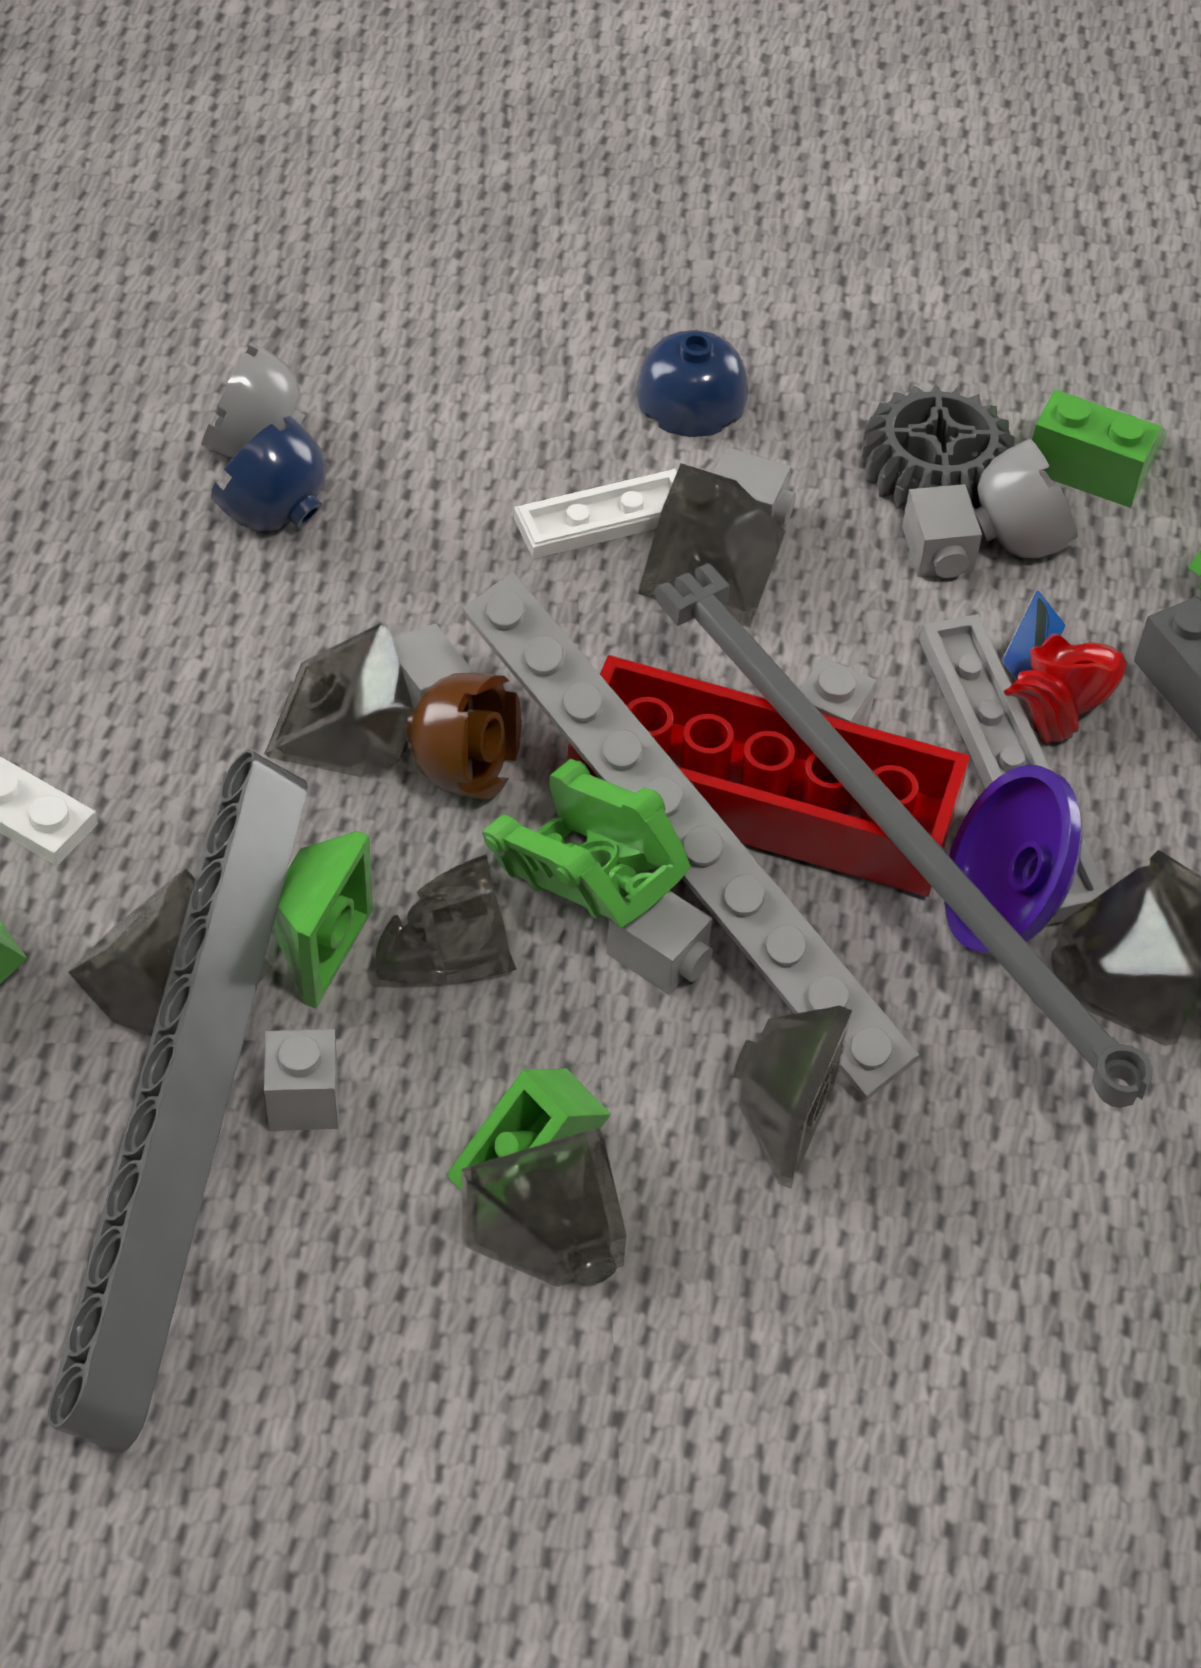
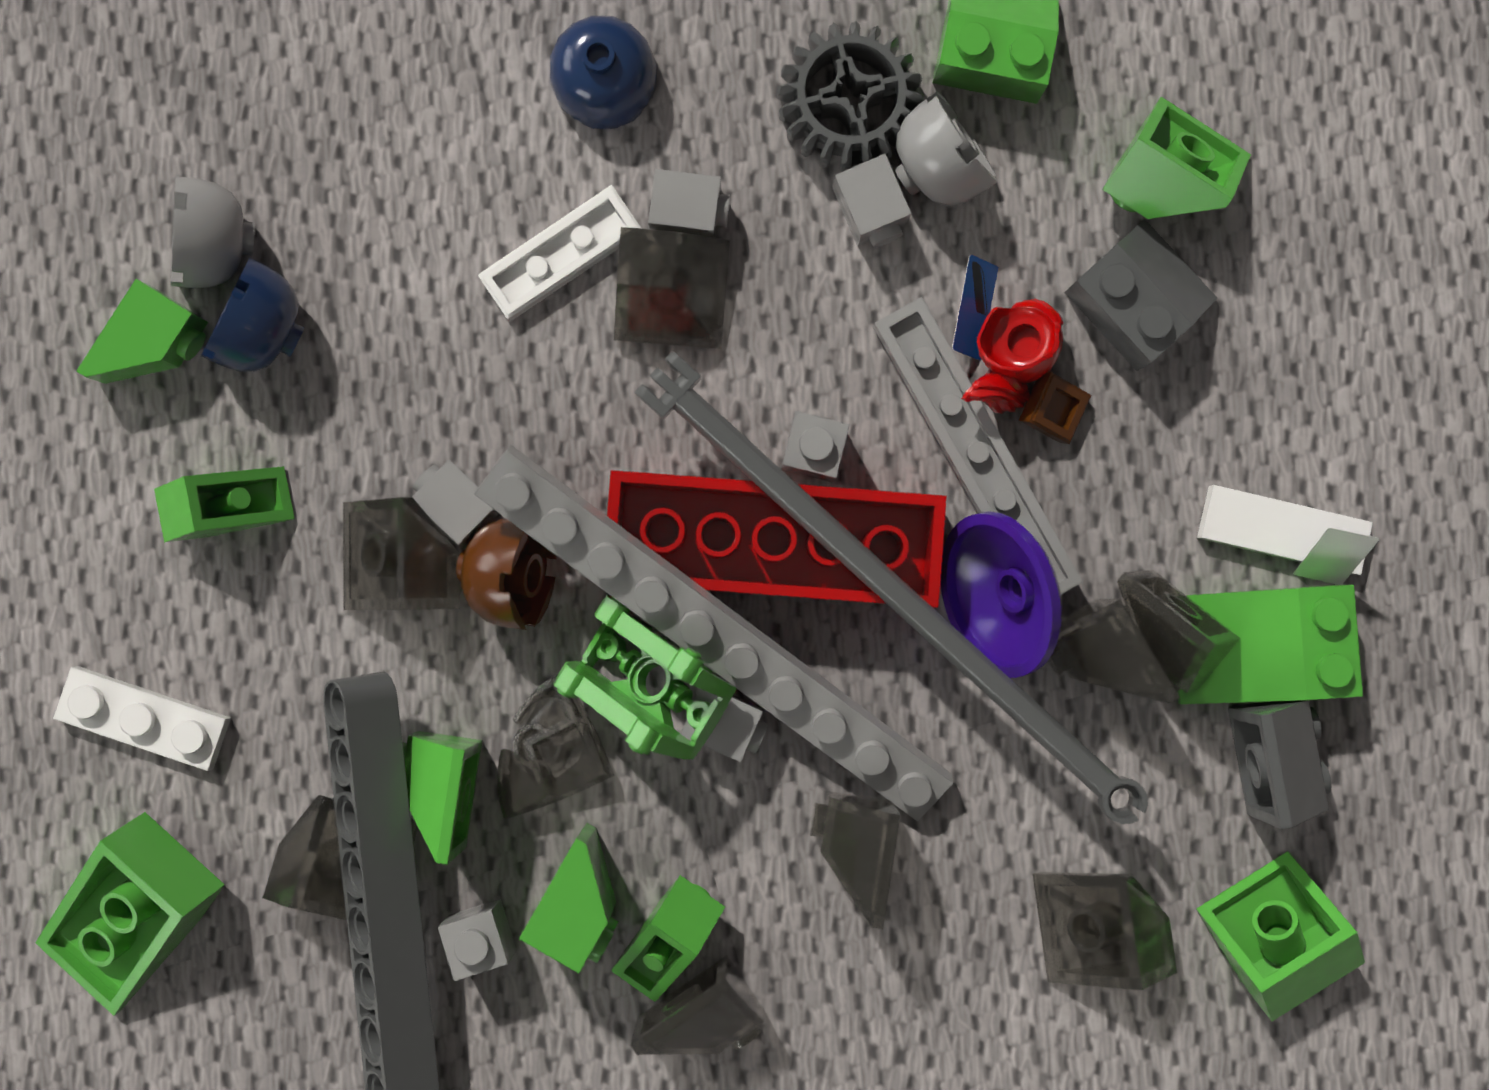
camera: 10 degrees left, 35 degrees up
(153, 477) = (144, 337): none -> bright green slope
(175, 620) = (223, 503): none -> bright green slope
(426, 1053) = (576, 908): none -> bright green slope
(1077, 1255) = (1102, 931): none -> clear smoke slope
(1106, 744) = (1055, 407): none -> reddish brown tile

